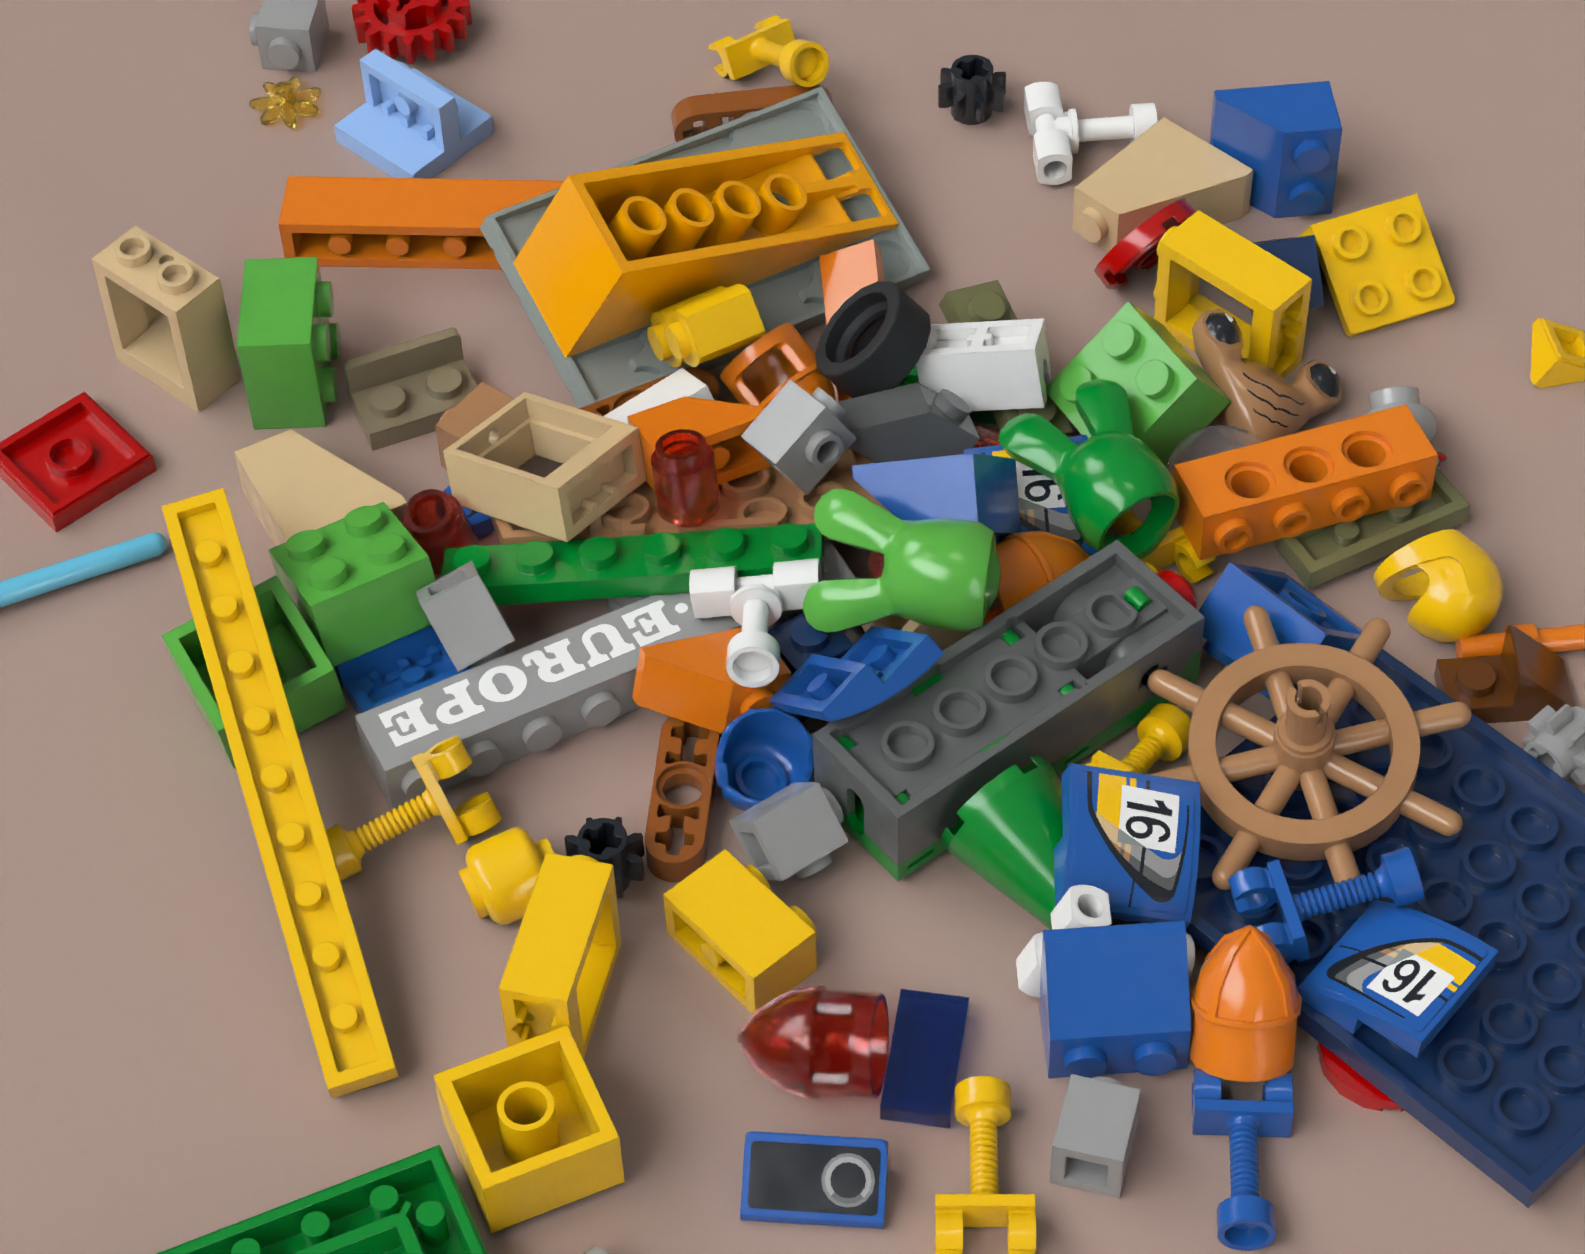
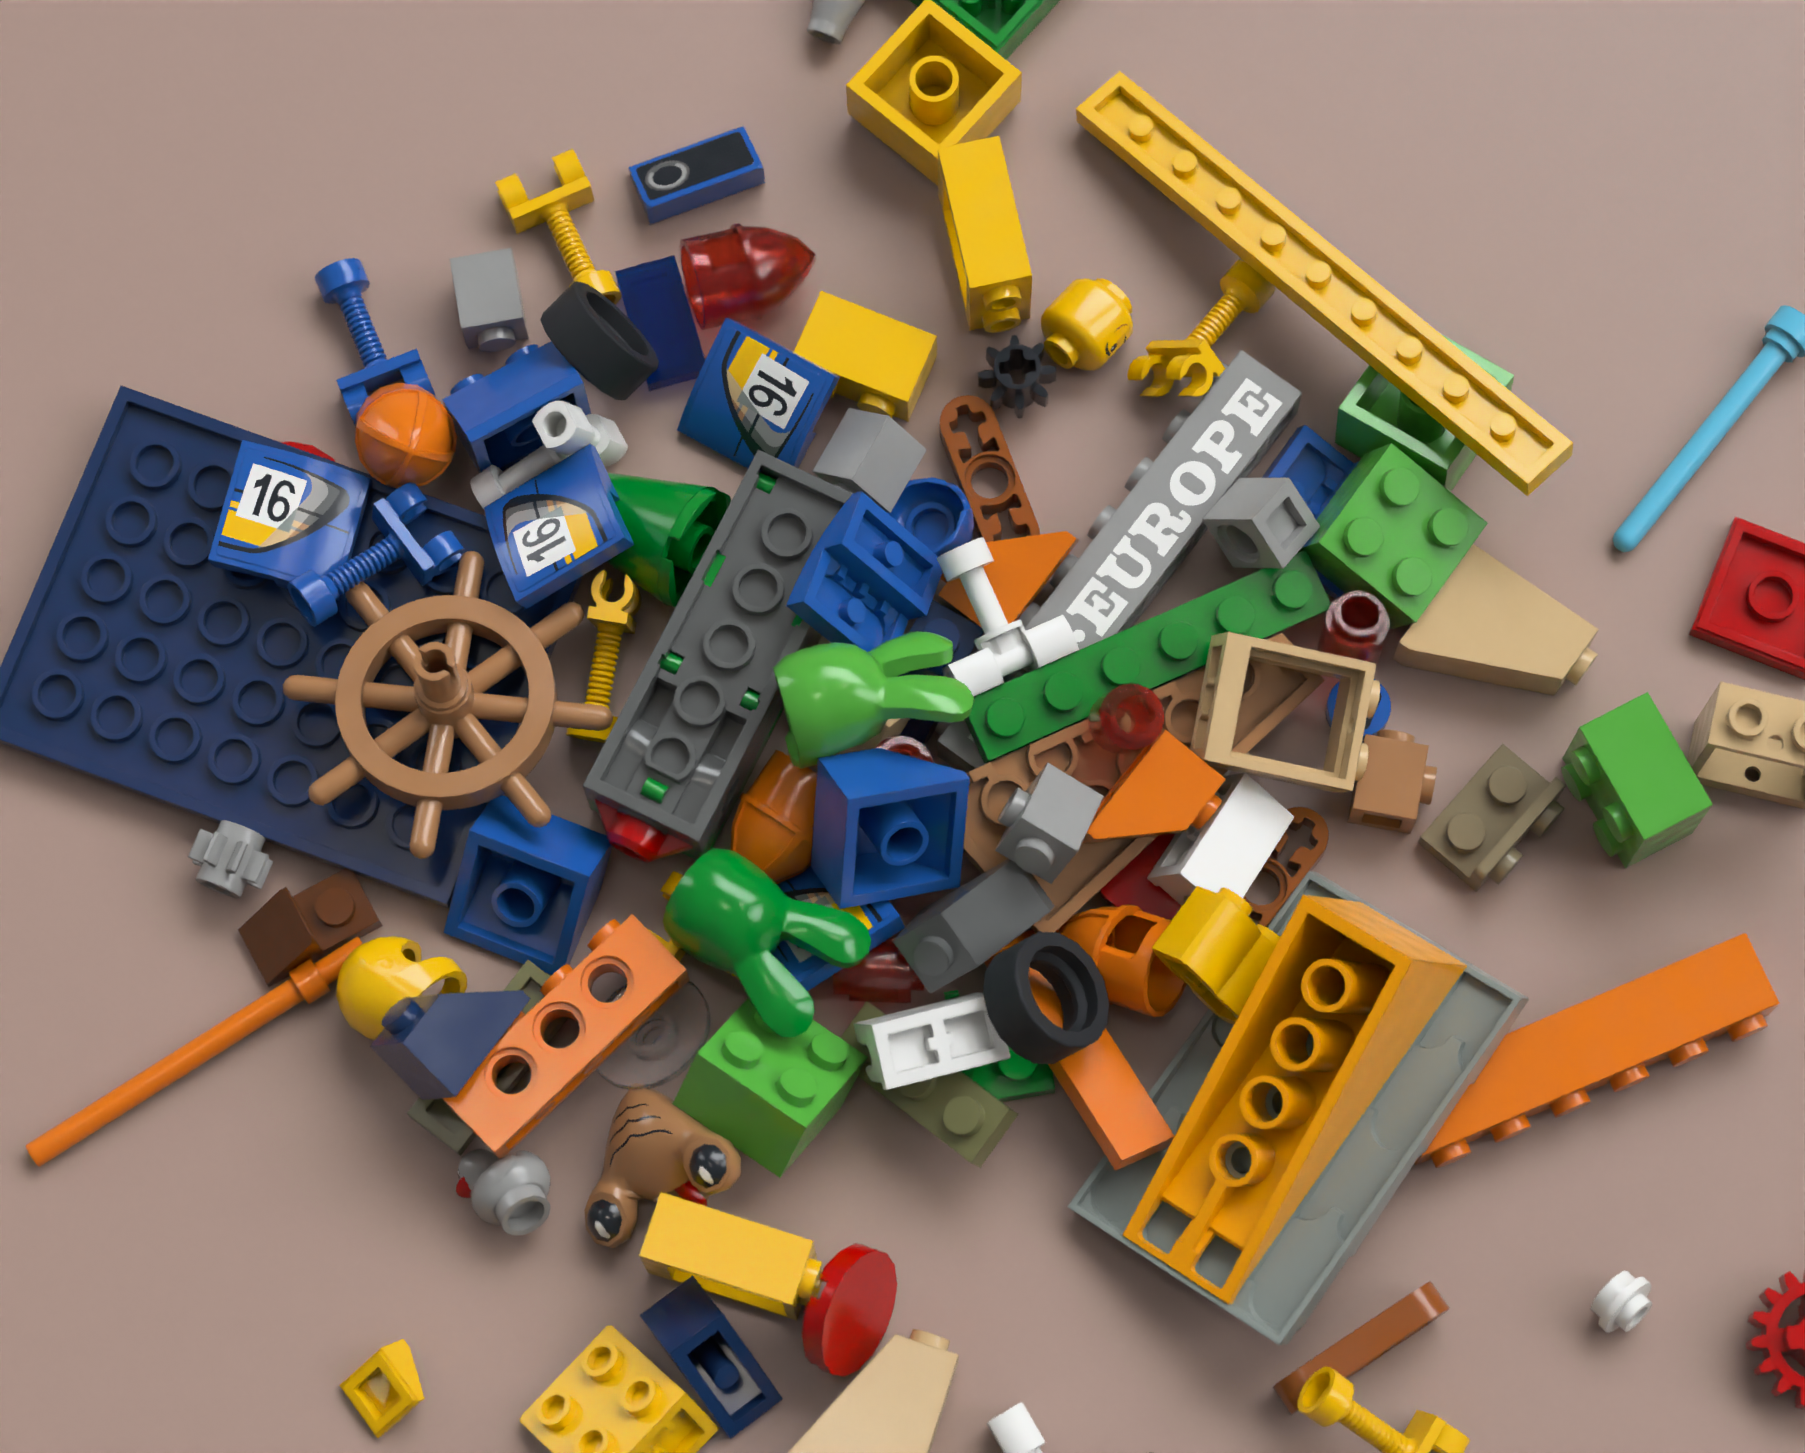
camera: 155 degrees right, 25 degrees up
(410, 121) = (1720, 1184): light blue bracket -> none
(539, 80) = (1622, 1302): none -> white plate
(866, 923) = (756, 398): none -> slope
(1003, 1009) = (599, 341): none -> black tyre
(1408, 492) = (444, 1037): none -> dark blue slope

